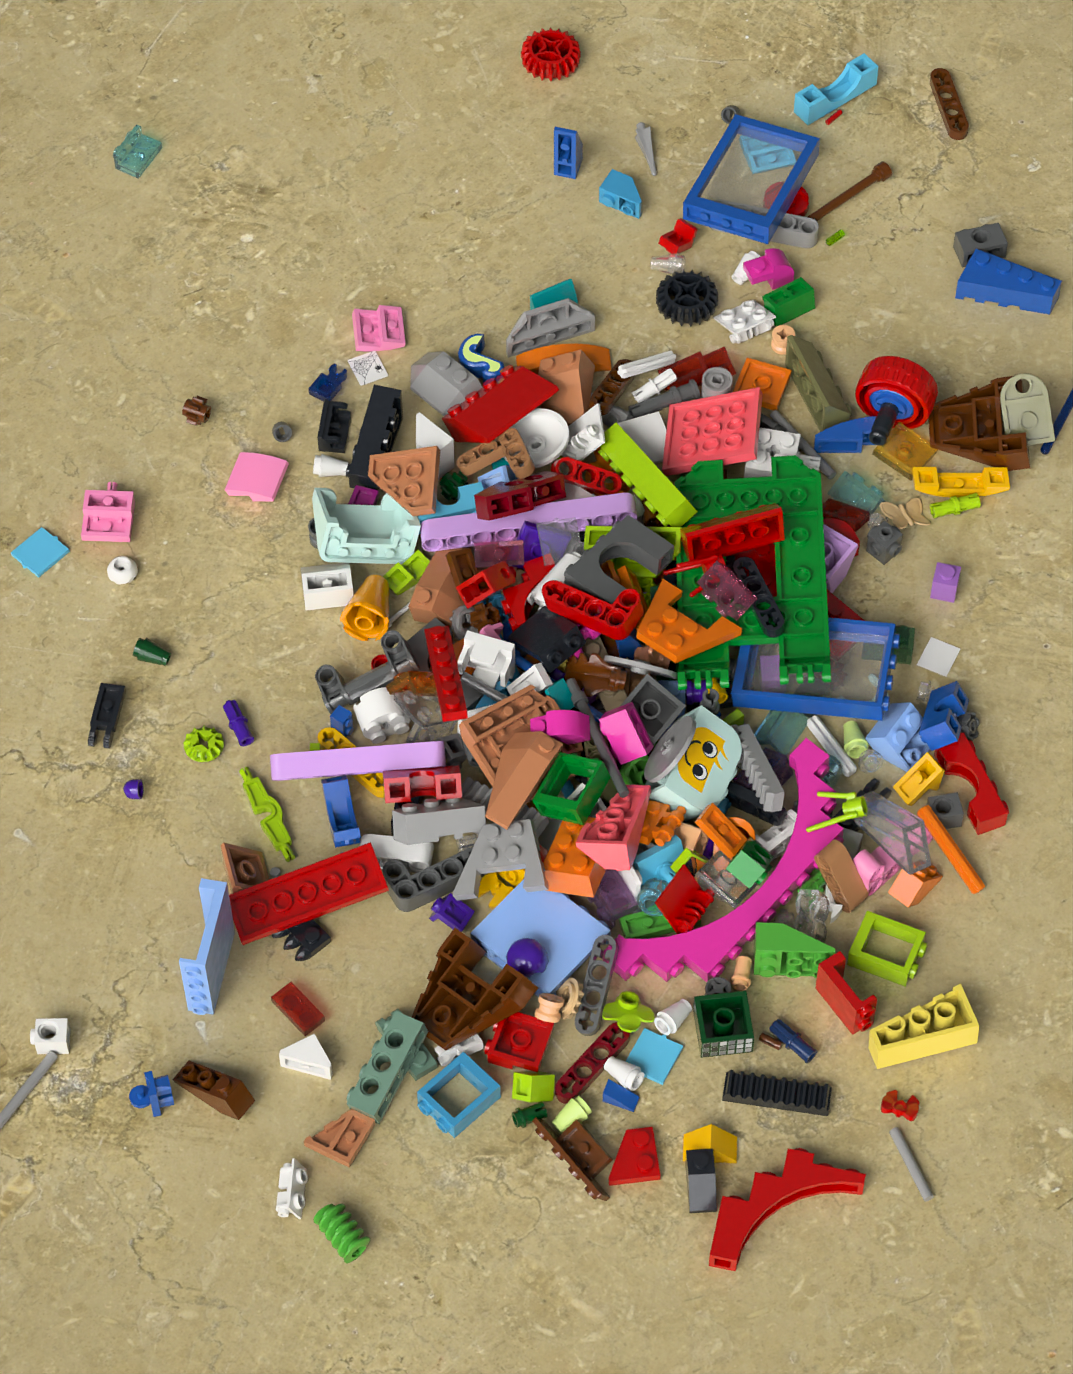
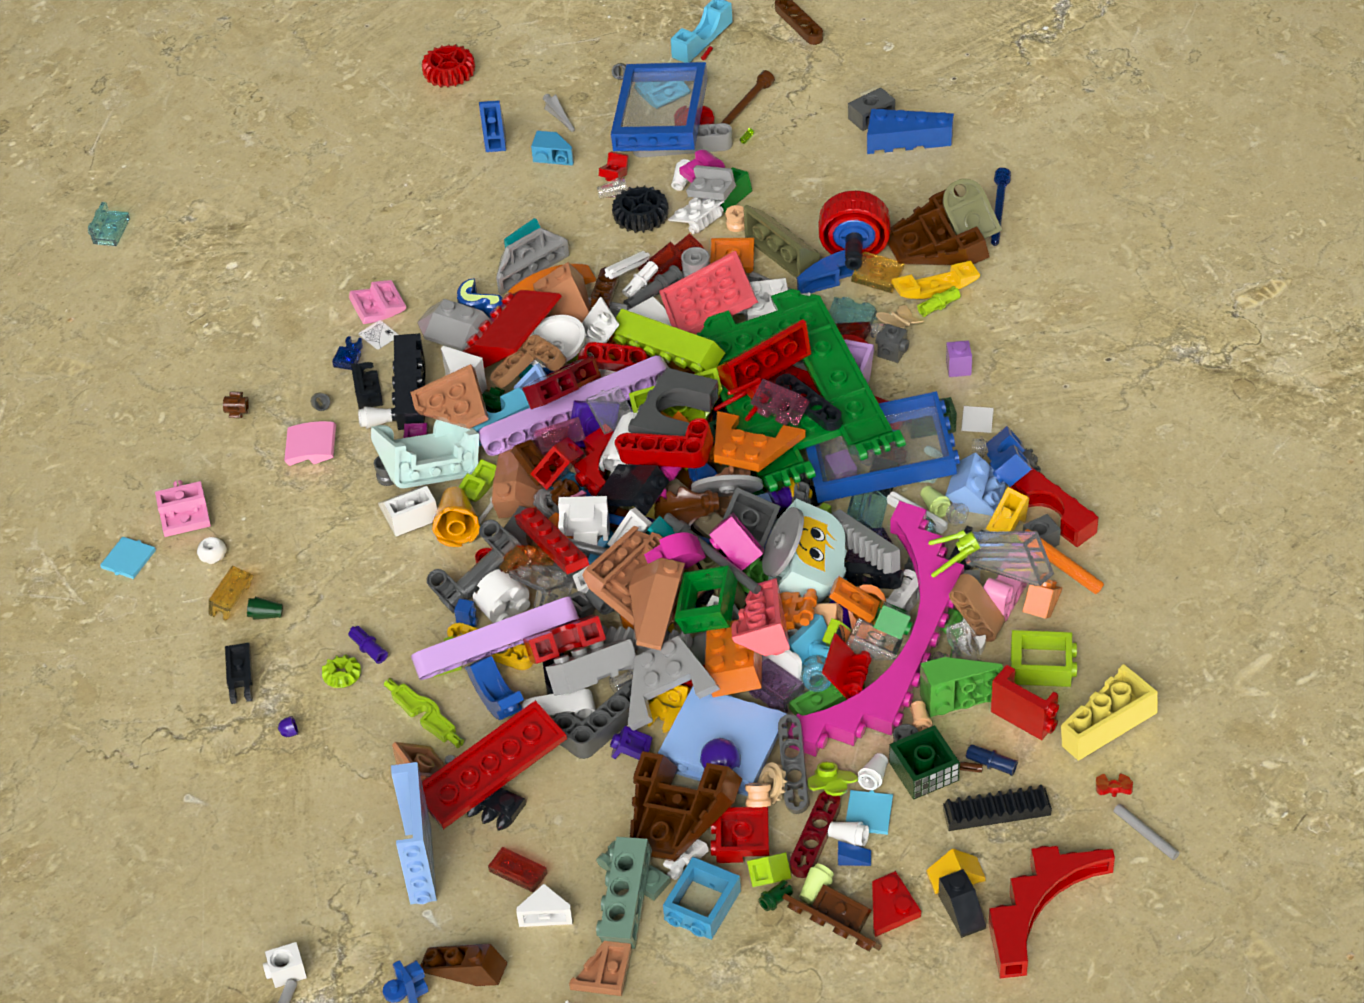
camera: 15 degrees left, 10 degrees down
(123, 624) = (229, 591): none -> clear yellow hinge
(768, 294) = (711, 183): none -> light grey bracket

